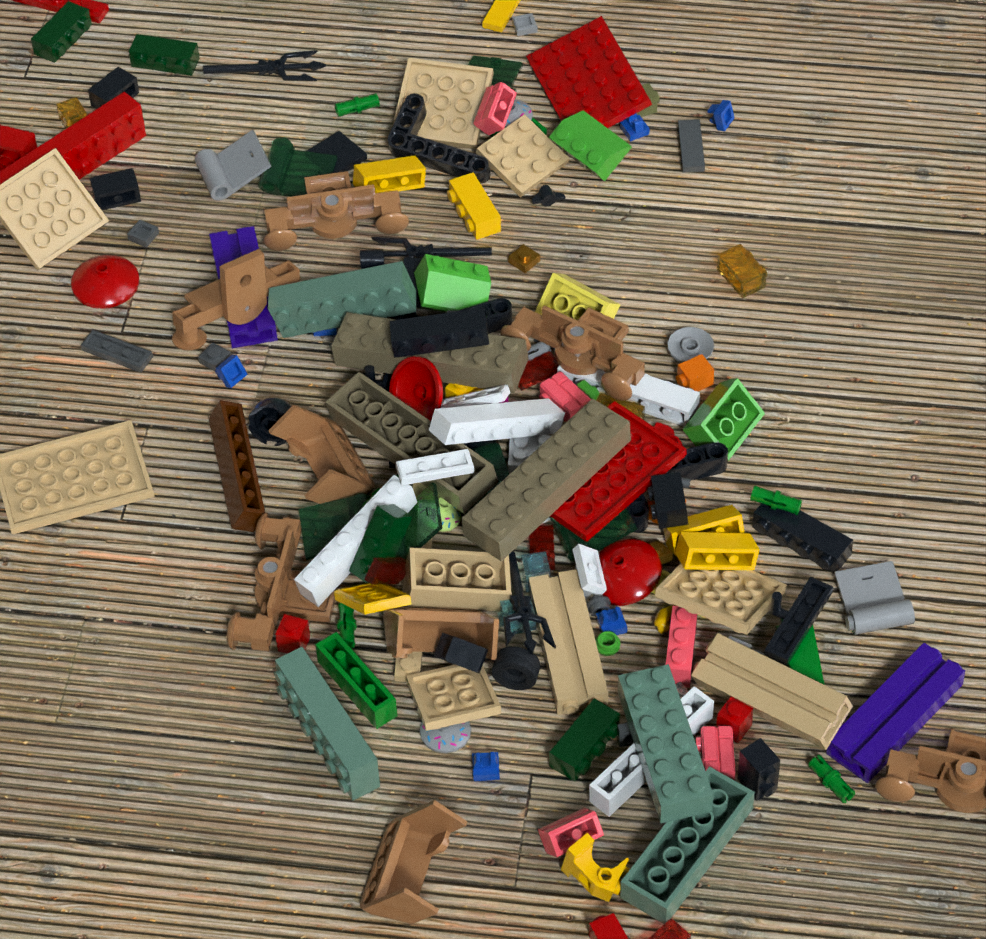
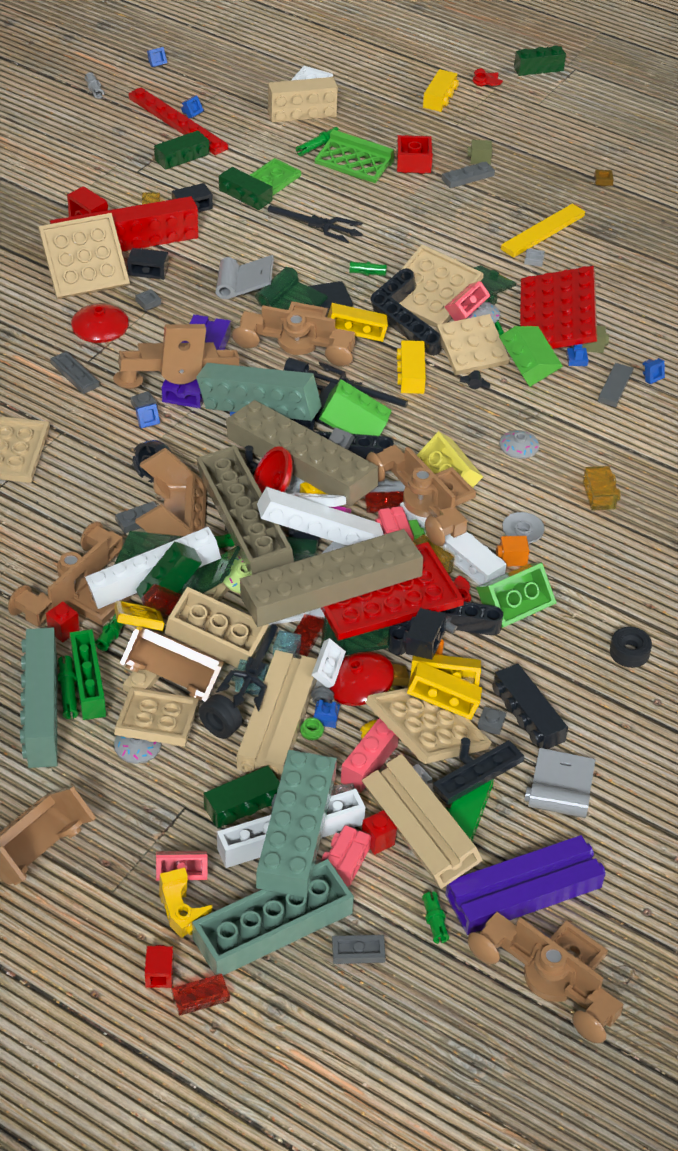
camera: 20 degrees right, 5 degrees down
(185, 23) = (277, 174): none -> bright green tile
(236, 466) = (103, 480): reddish brown brick -> none
(293, 489) = (126, 519): none -> dark grey plate
(338, 691) = (67, 679): none -> green pin
(434, 467) = (242, 532): white tile -> none
(439, 332) = (309, 435): black brick -> none
(460, 652) = (182, 686): black slope -> none
(485, 766) = (150, 784): blue tile -> none
(524, 258) = (429, 418): pearl gold plate -> none
(631, 252) = (519, 444): none -> light grey dish
(759, 769) = (371, 880): black brick -> none
(772, 562) = (491, 720): none -> dark grey plate
(776, 500) = (518, 668): green pin -> none
(780, 840) = (358, 949): none -> dark grey plate
(862, 443) = (629, 657): none -> black tyre

